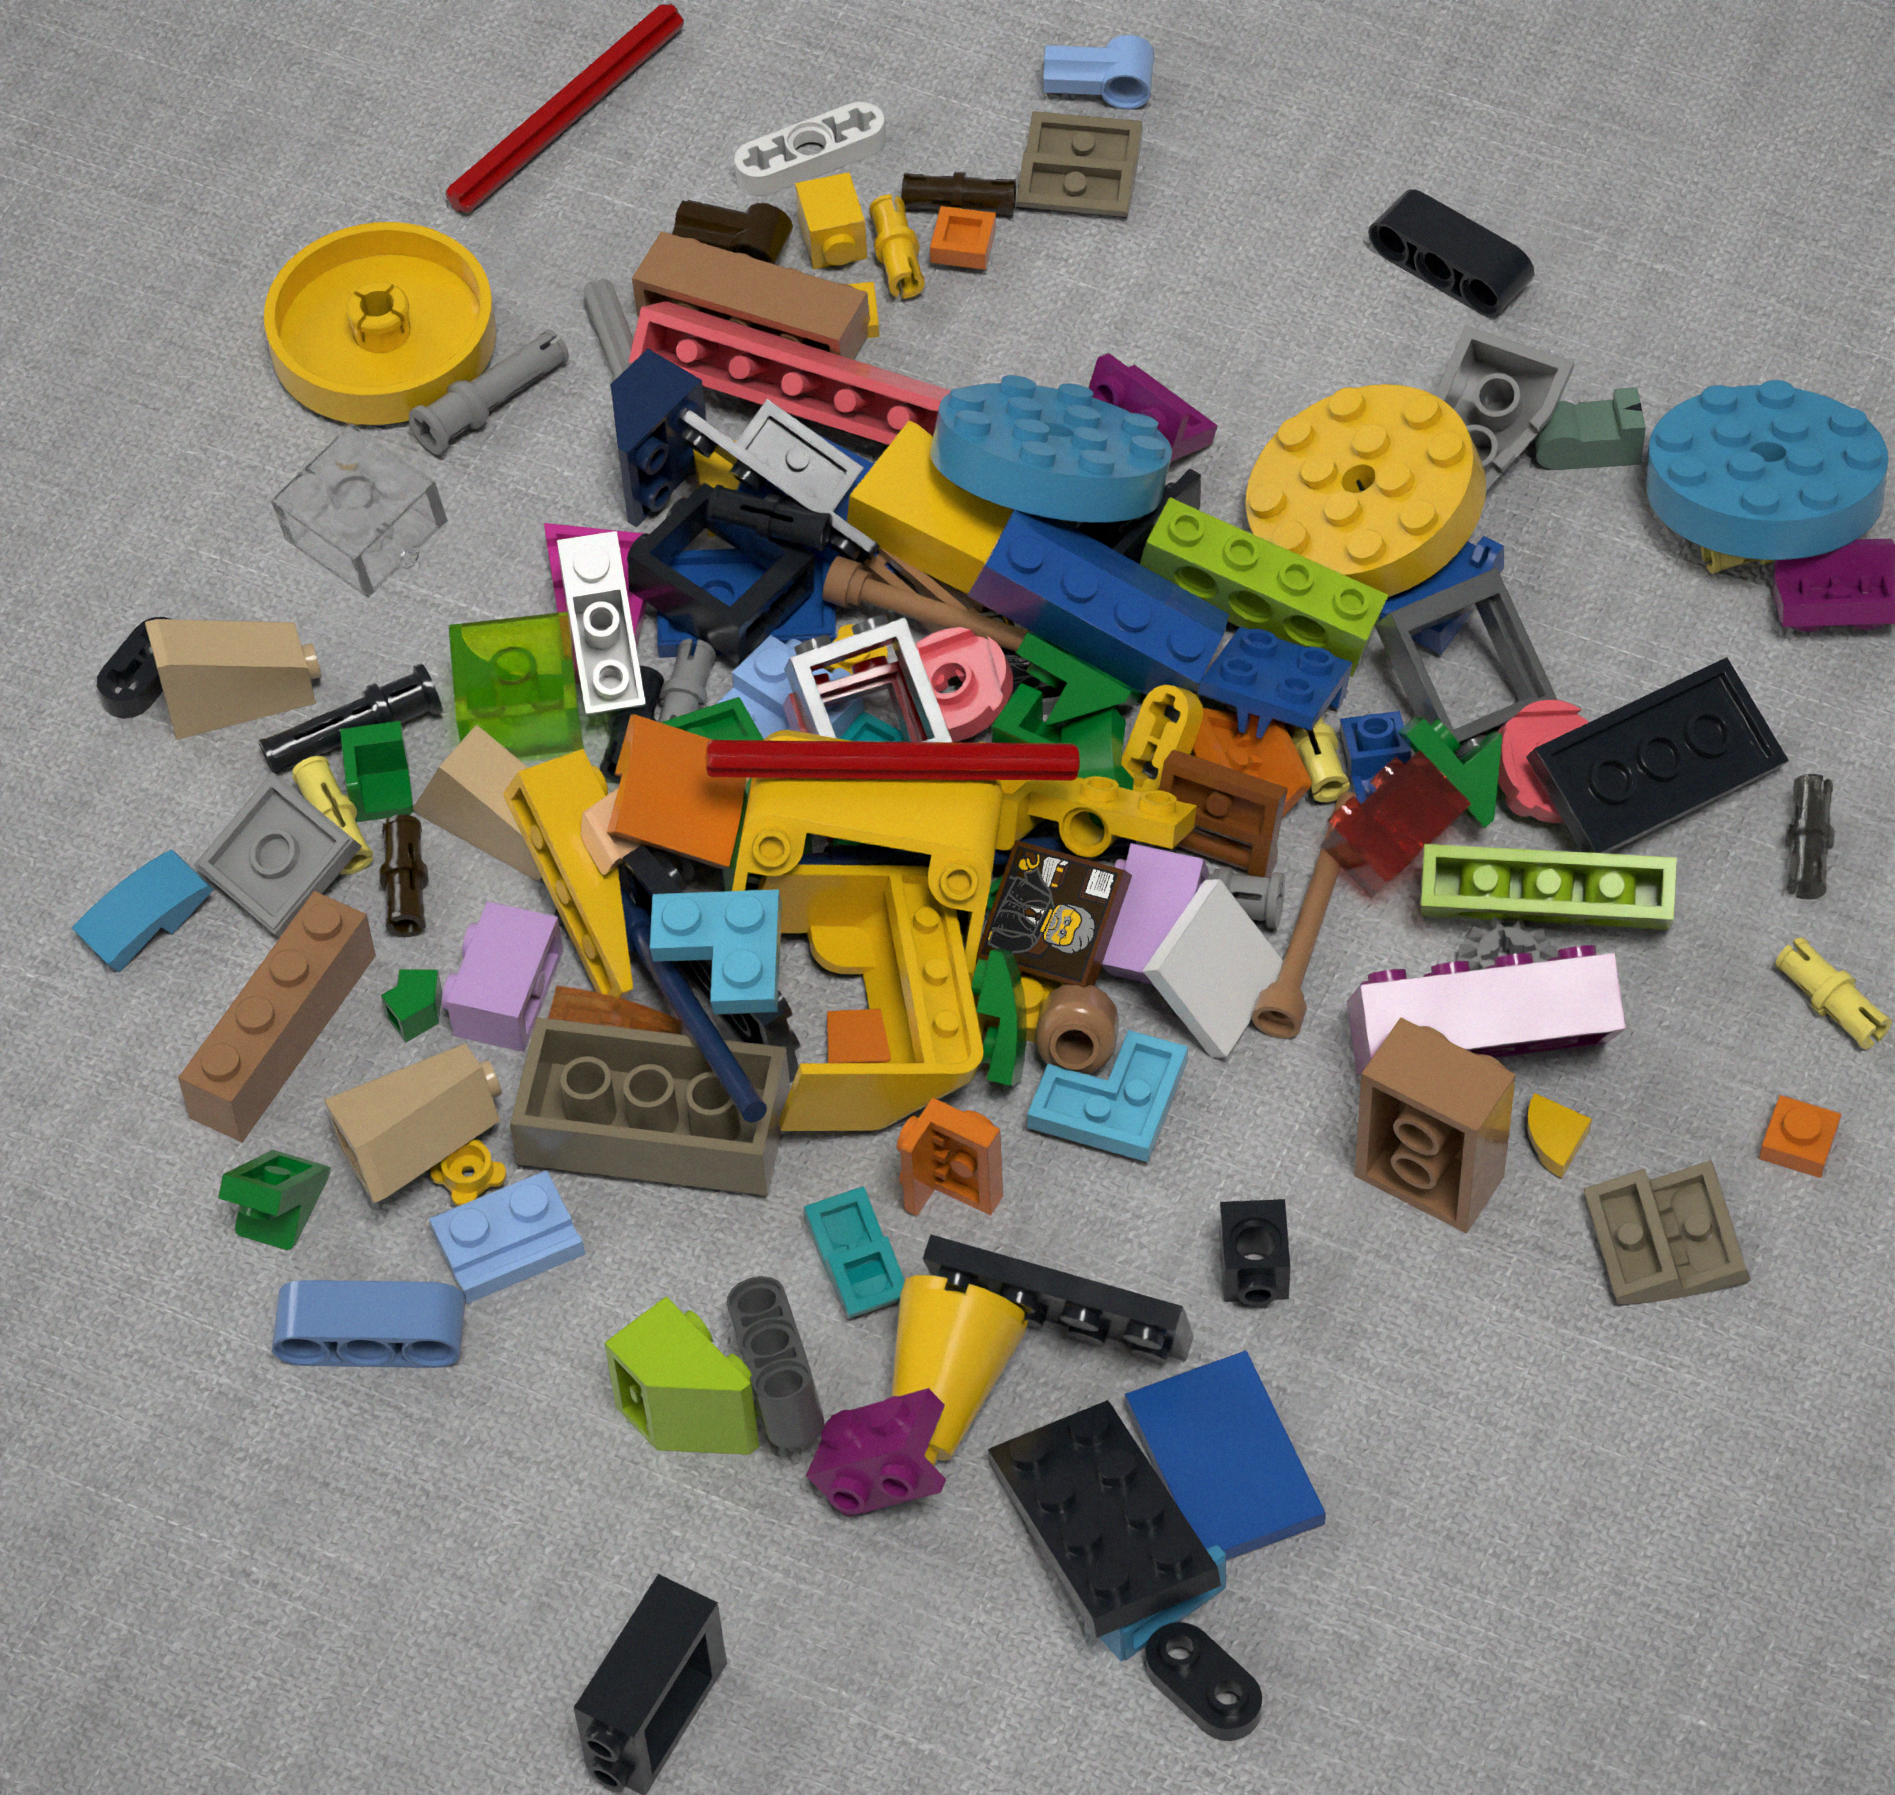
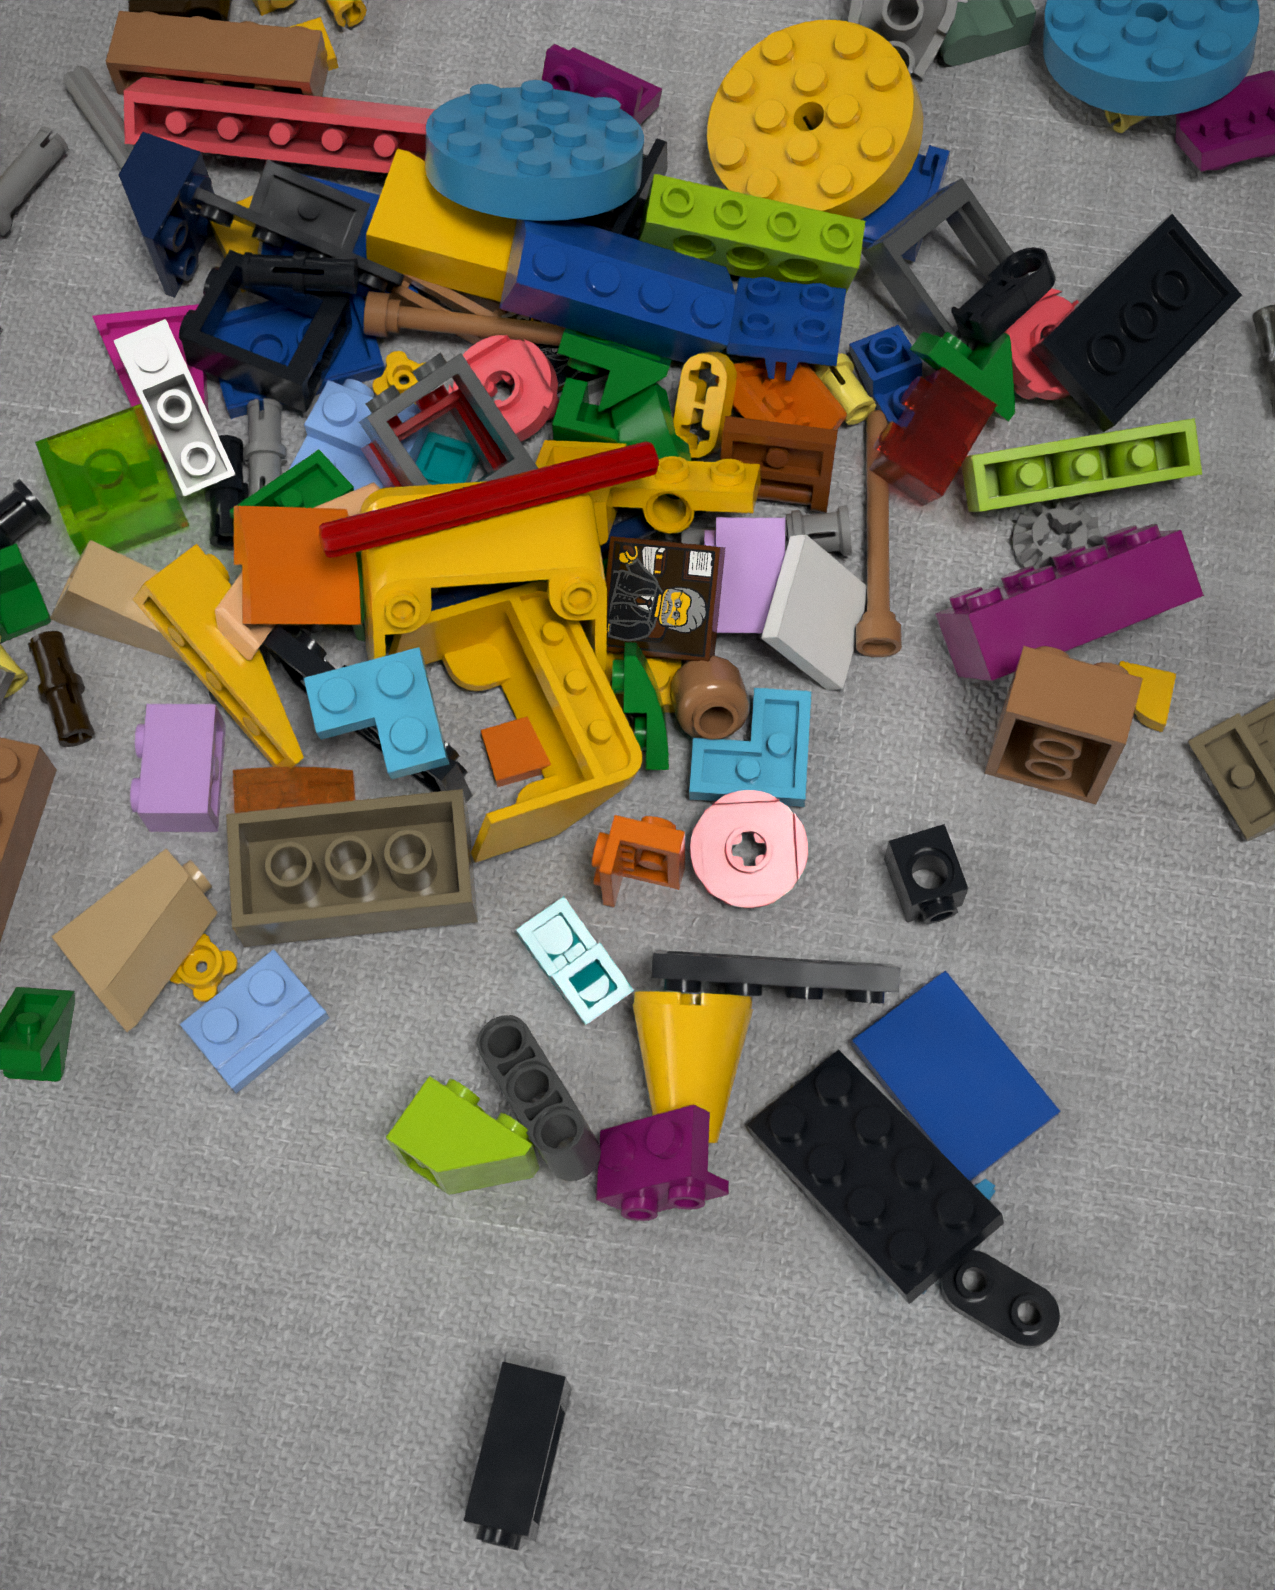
camera: 15 degrees left, 15 degrees up
(368, 1324) = (154, 1144): medium blue beam -> none
(414, 1002) = (106, 811): green piece -> none
(692, 1015) = (420, 832): dark blue bar -> none
(1093, 1214) = (771, 825): none -> plate
(1513, 696) = (1005, 295): none -> black piece

